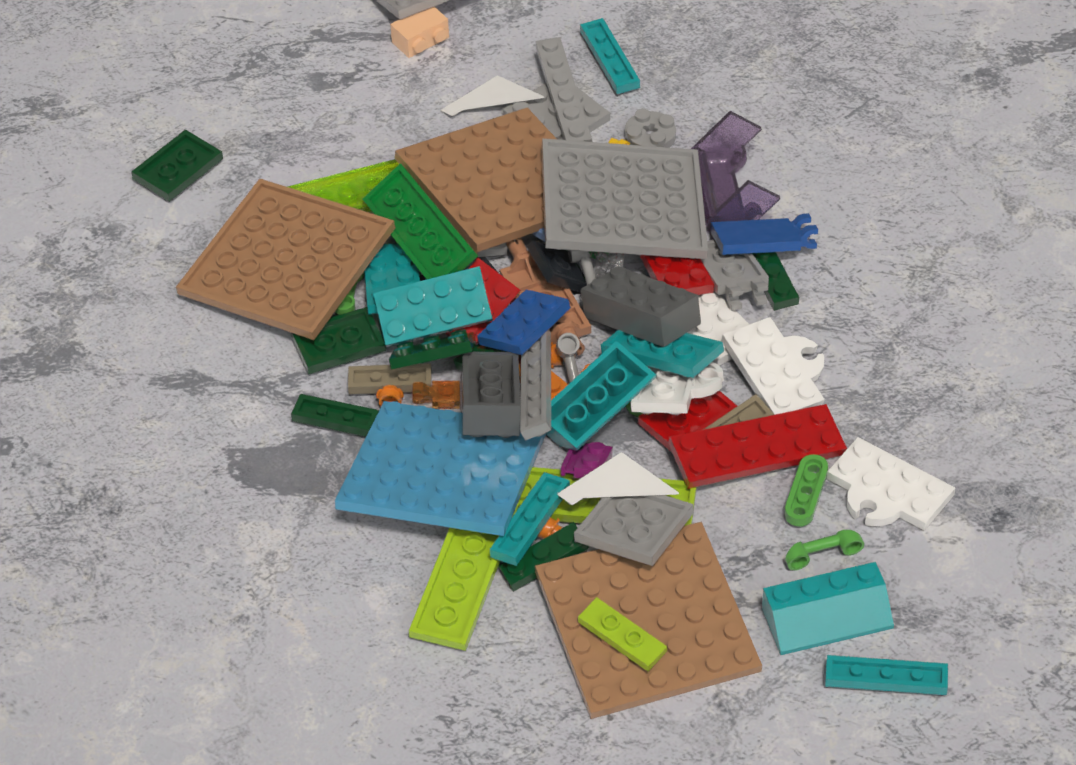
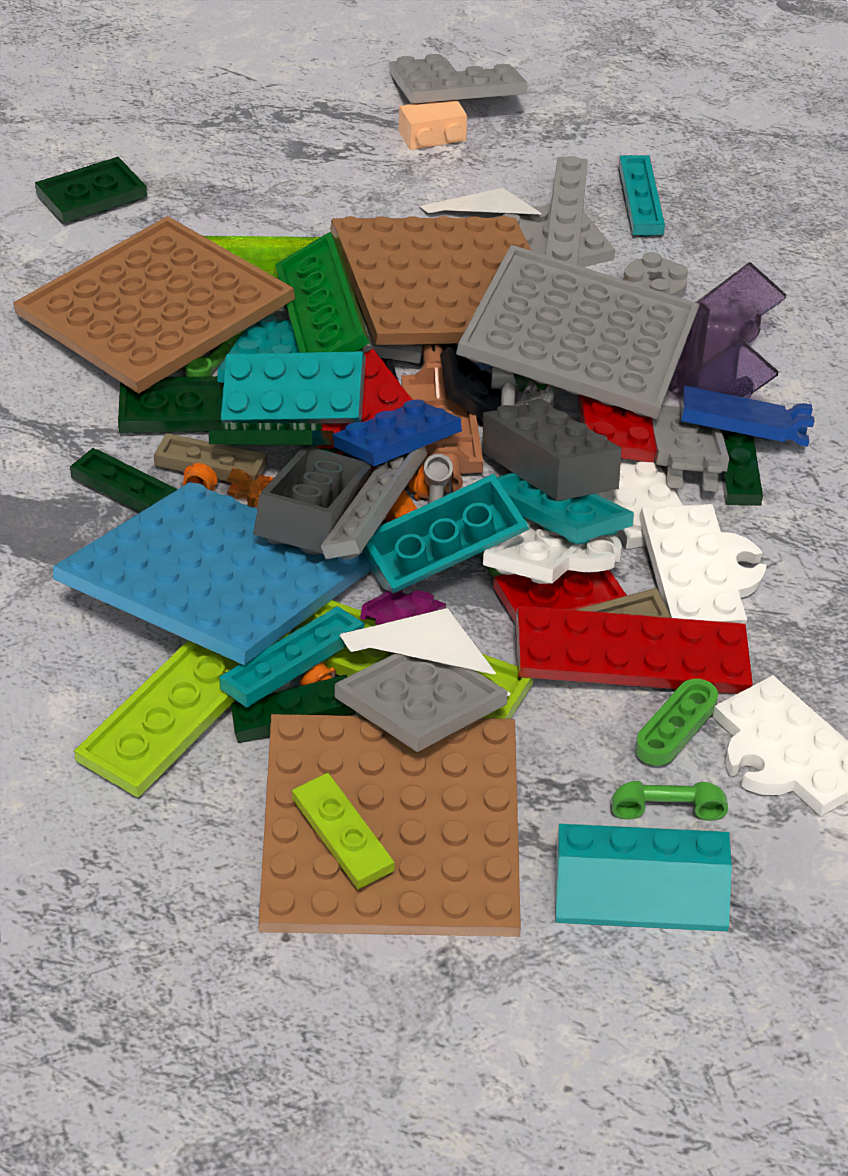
camera: 15 degrees right, 5 degrees down
(886, 675) = (691, 990): teal plate -> none

